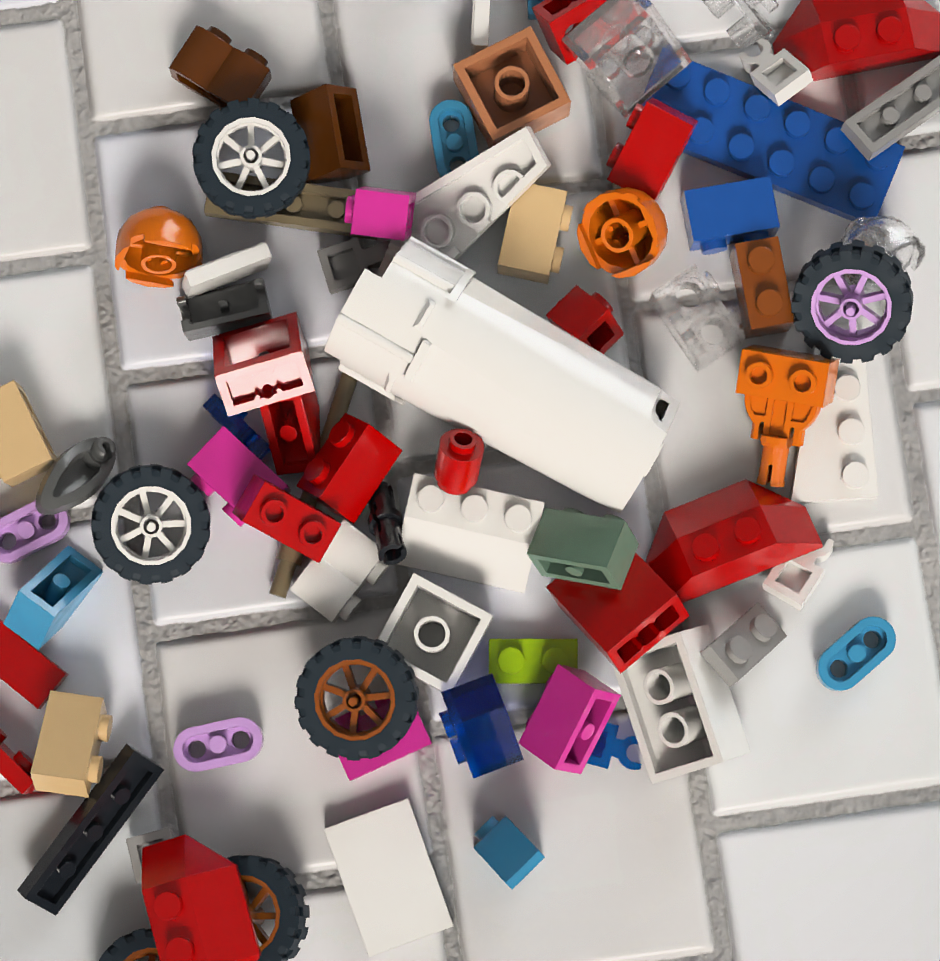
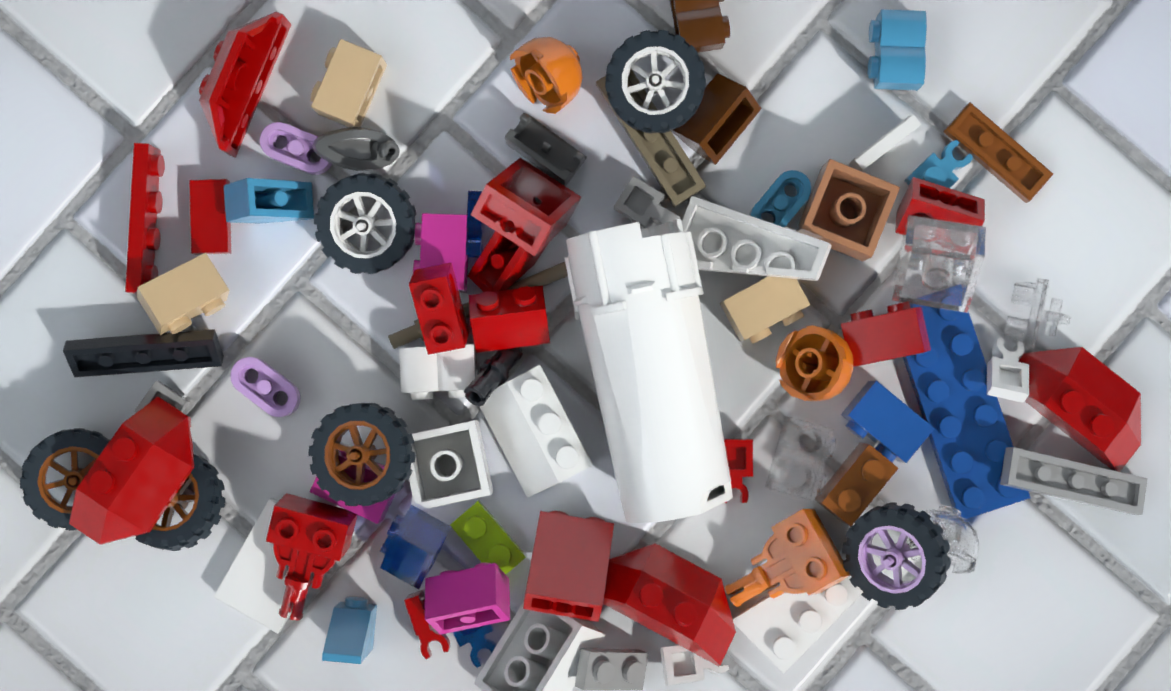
camera: 45 degrees right, 5 degrees up
(226, 269) = (570, 128): white tile -> none
(381, 213) = (689, 197): dark pink brick -> none
(392, 820) = (308, 541): none -> red brick
(458, 461) = (570, 388): red brick -> none
(553, 779) = (416, 608): none -> red plate
(583, 547) = (584, 515): sand green brick -> none
(586, 319) = (735, 389): red brick -> none
(661, 374) = (740, 464): none -> red plate

